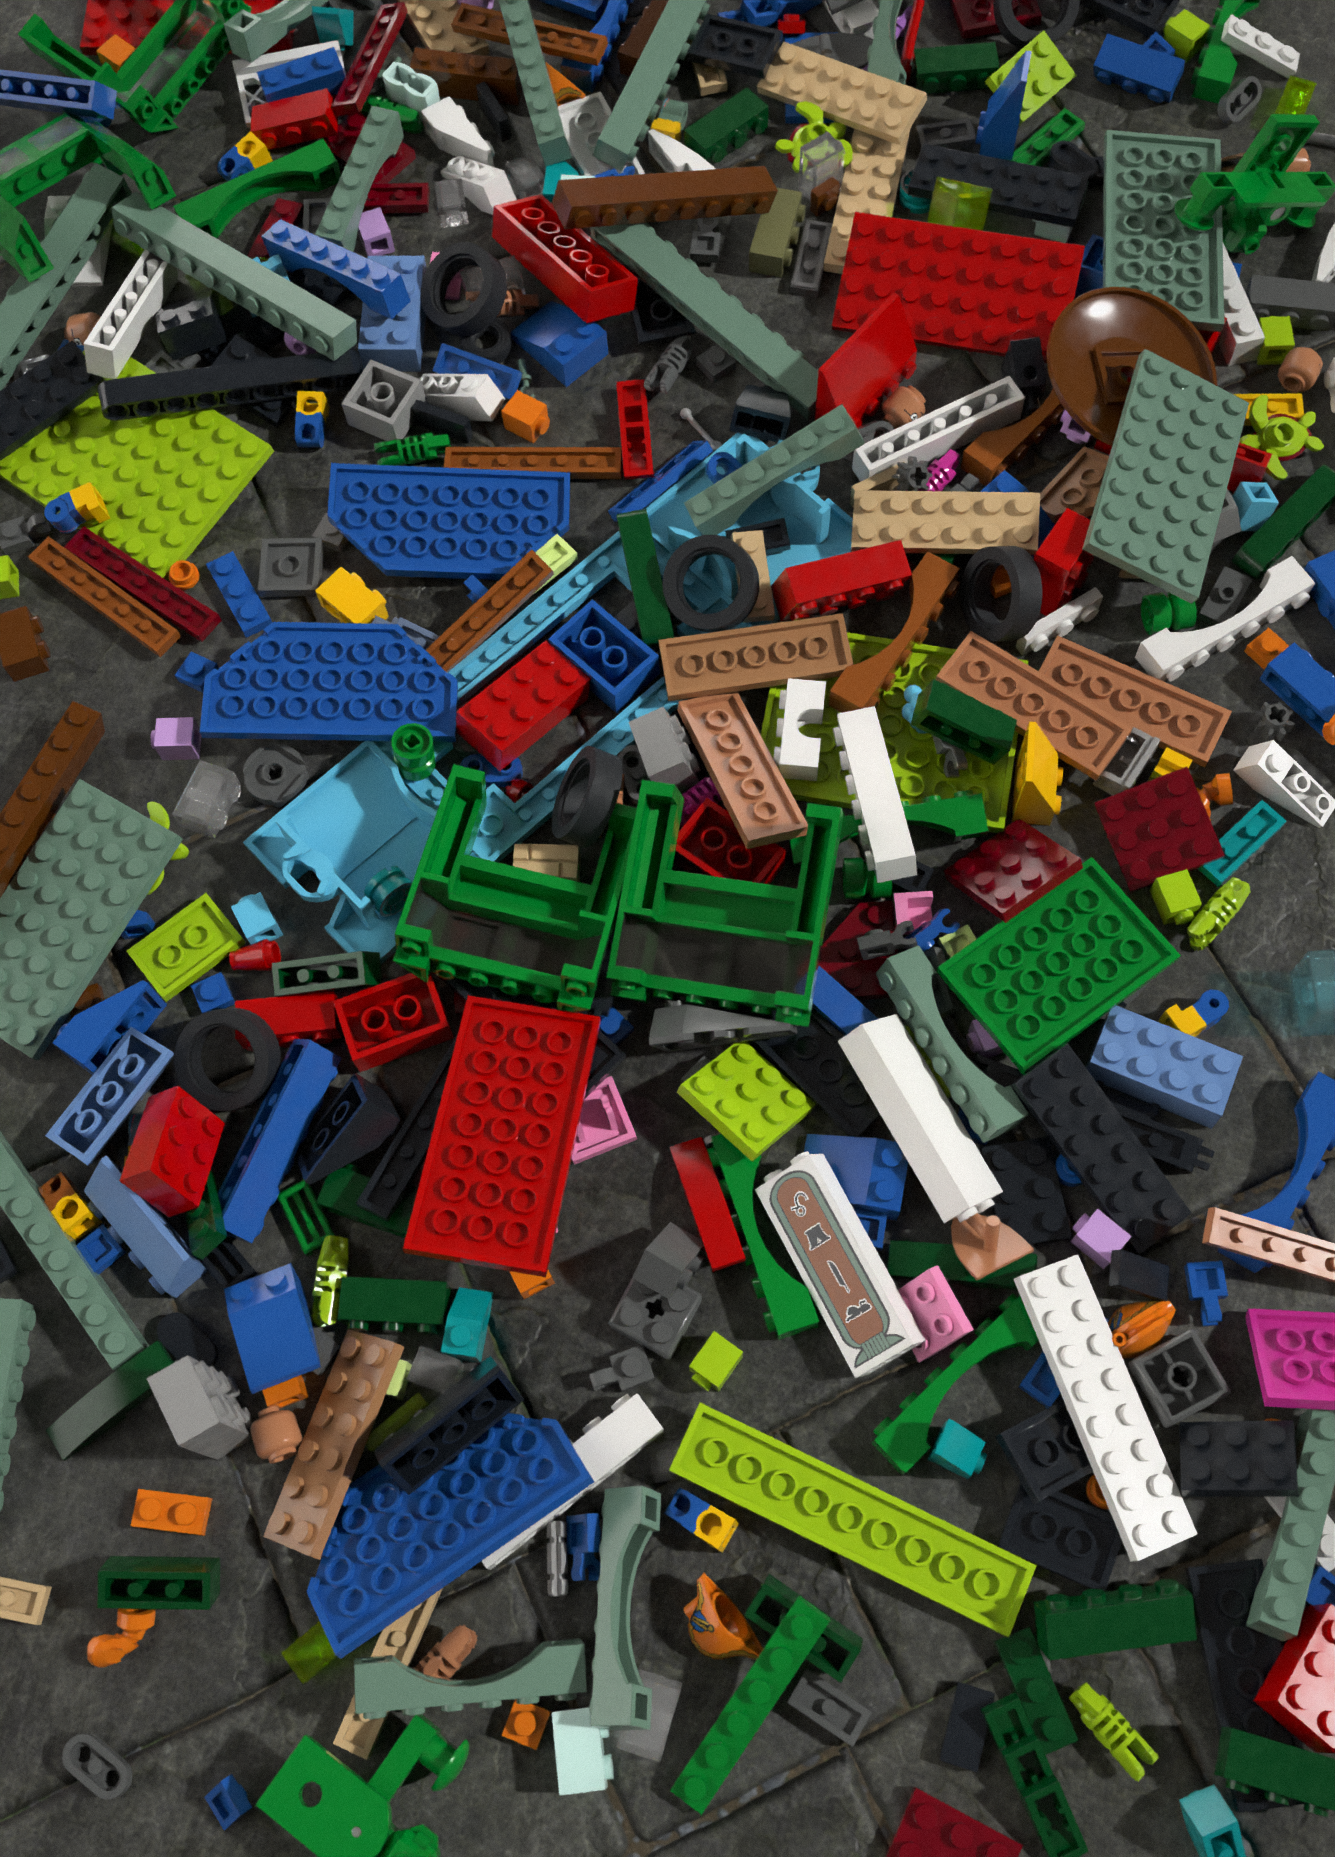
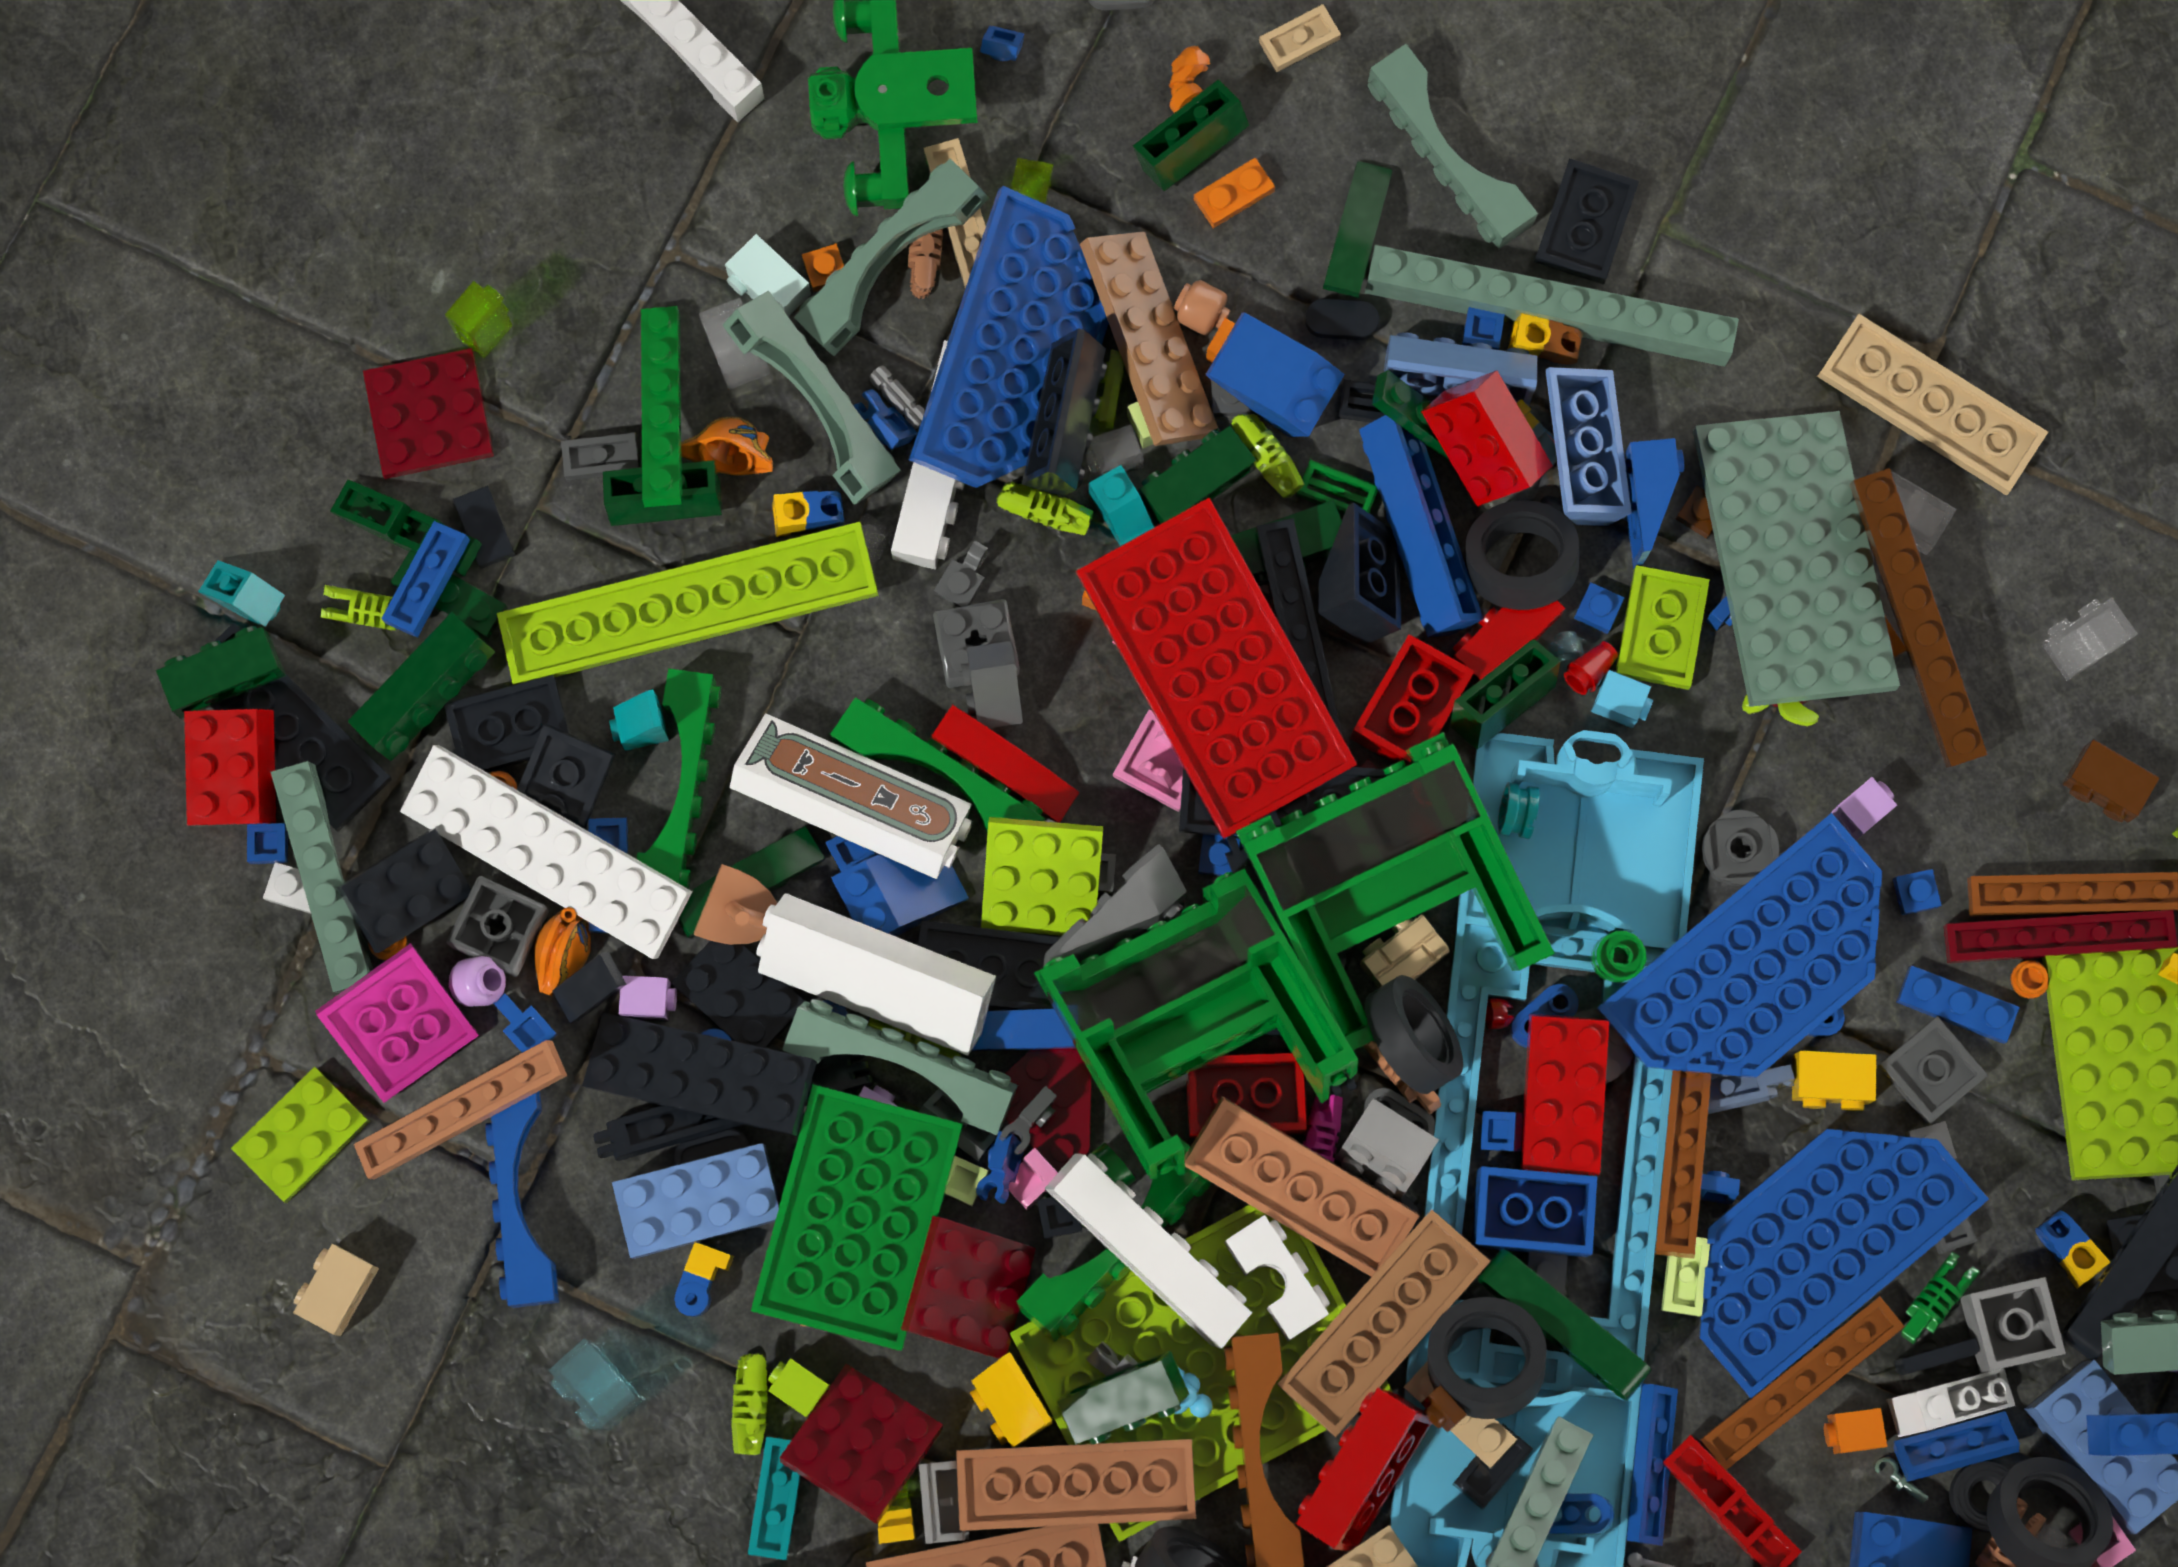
camera: 135 degrees right, 10 degrees up
(201, 1407) = (1265, 266): light grey piece -> none
(207, 799) = (1776, 773): clear brick -> none
(257, 983) = (1567, 646): none -> clear light blue plate
(522, 1374) = (1045, 508): none -> lime hinge
(580, 719) = (1502, 1131): none -> blue plate
(715, 1362) = (892, 640): lime brick -> none
(765, 571) = (1442, 1409): none -> reddish brown plate
(935, 1312) = (740, 817): bright pink plate -> none
(1052, 1709) = (425, 579): none -> blue plate
(1217, 790) = (834, 1540): orange arm -> none
(1225, 1345) = (477, 982): none -> lavender head

